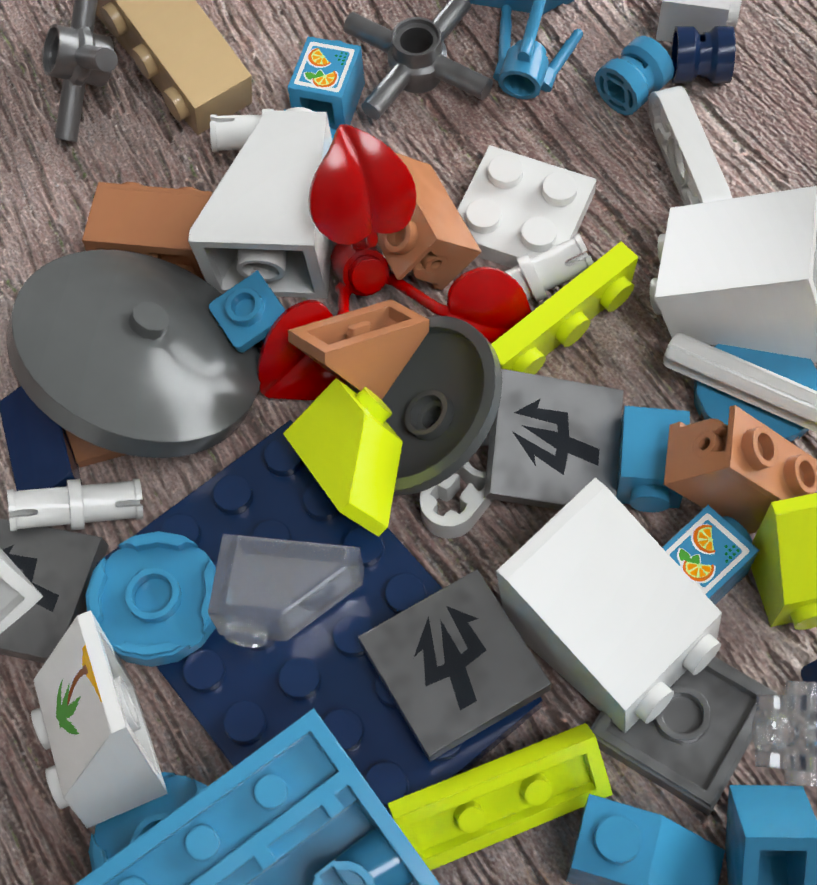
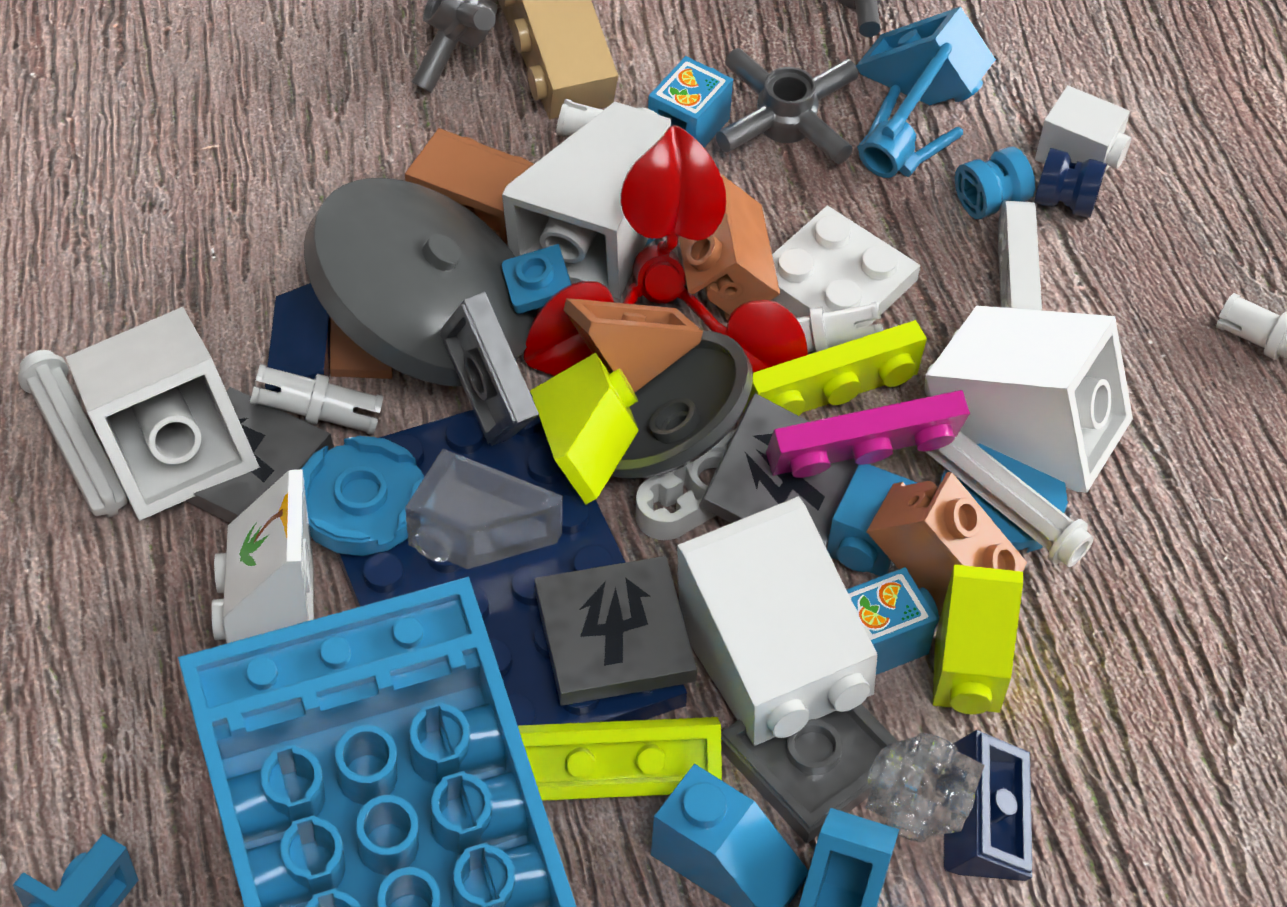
camera: 10 degrees right, 10 degrees down
(242, 438) = (488, 370): none -> flat silver tile
(628, 381) = (867, 434): none -> dark pink plate

